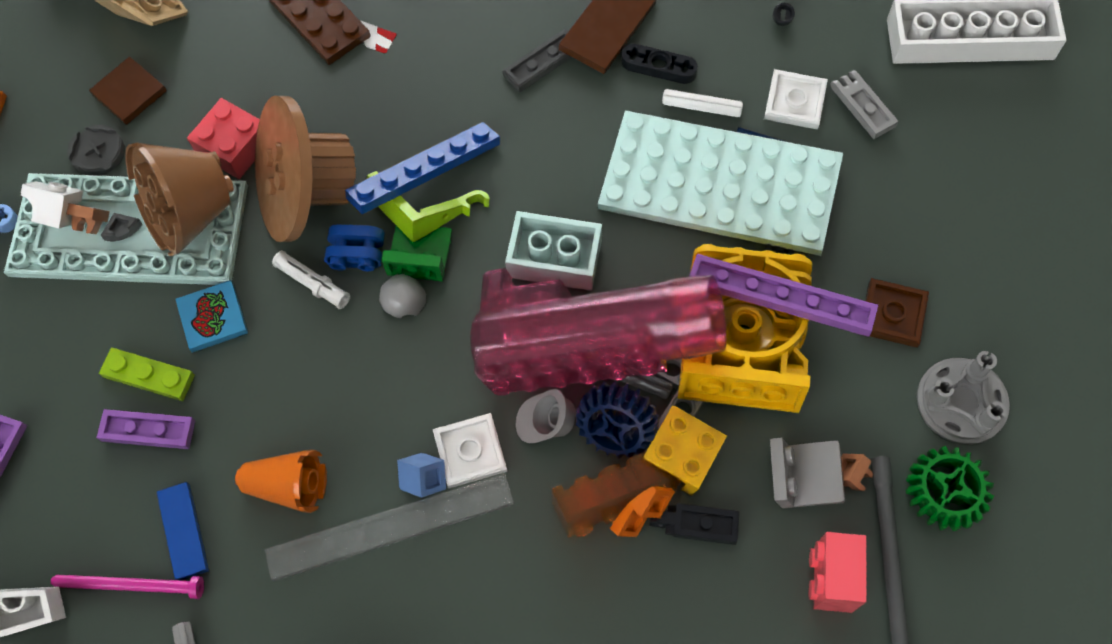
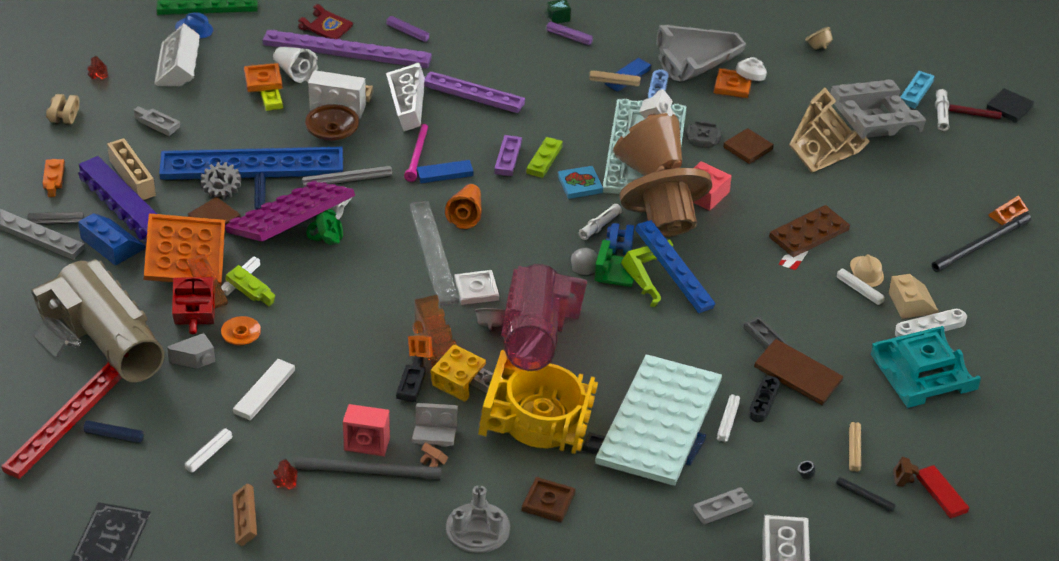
camera: 90 degrees right, 25 degrees down
(421, 474) = (462, 262): medium blue panel -> none
(554, 249) = (607, 325): light aqua brick -> none
(621, 412) = (482, 334): dark blue gear -> none
(788, 296) = (548, 401): medium lavender plate -> none
(796, 99) = (730, 471): white tile -> none
(974, 498) = (415, 507): green gear -> none

